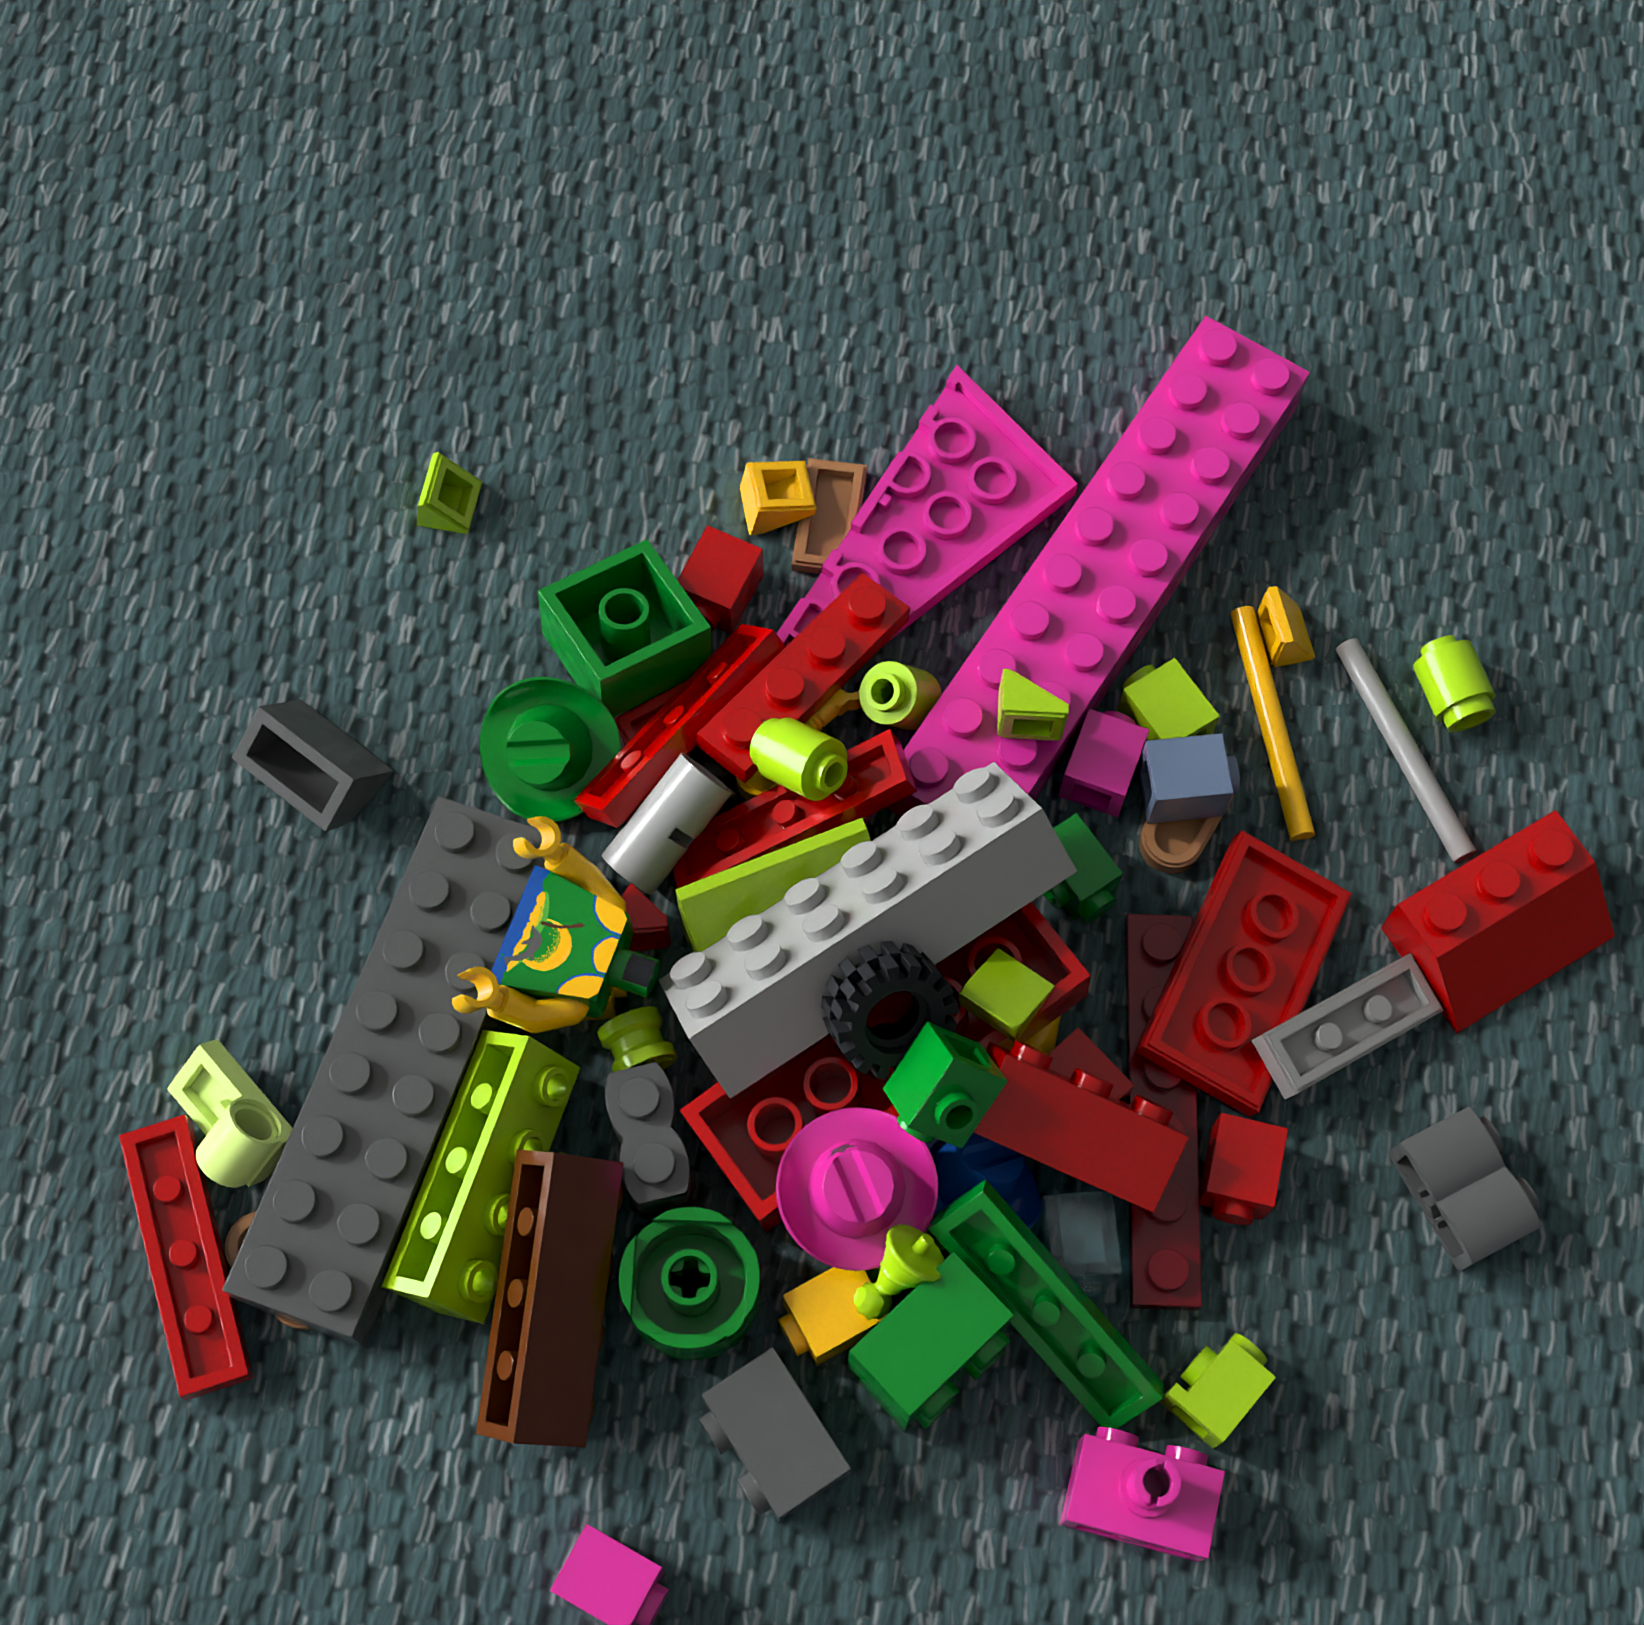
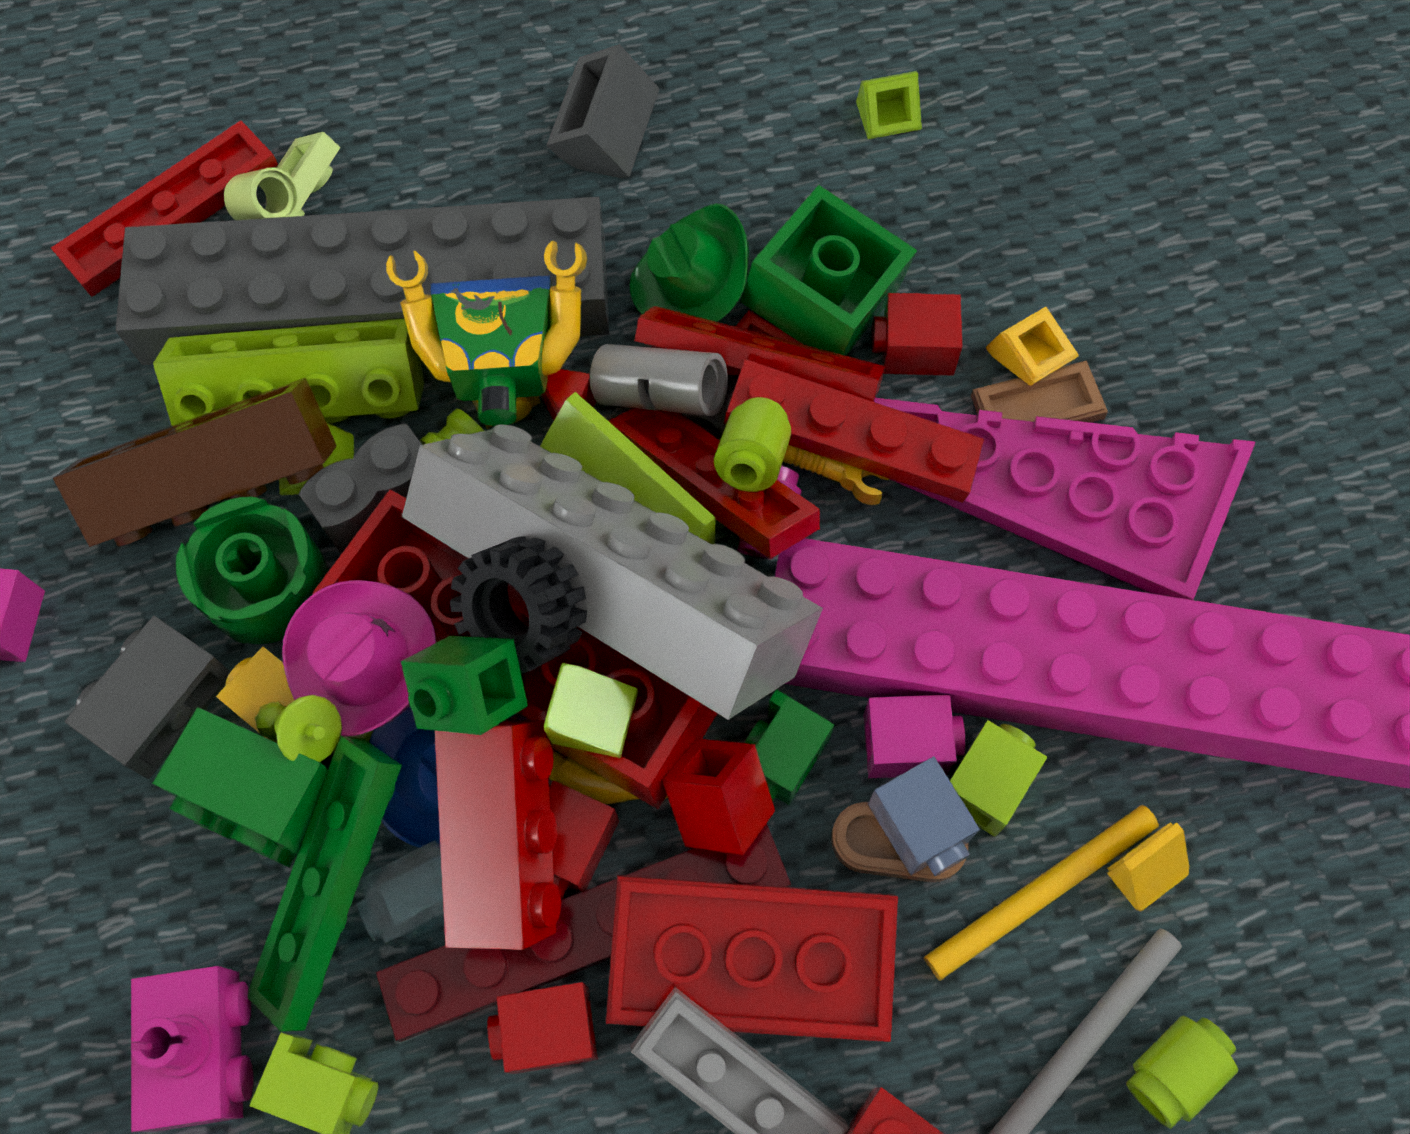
camera: 70 degrees right, 0 degrees up
(898, 695) = (879, 518): lime brick -> none
(1029, 710) = (895, 621): lime slope -> none
(1106, 932) = (719, 796): none -> red brick

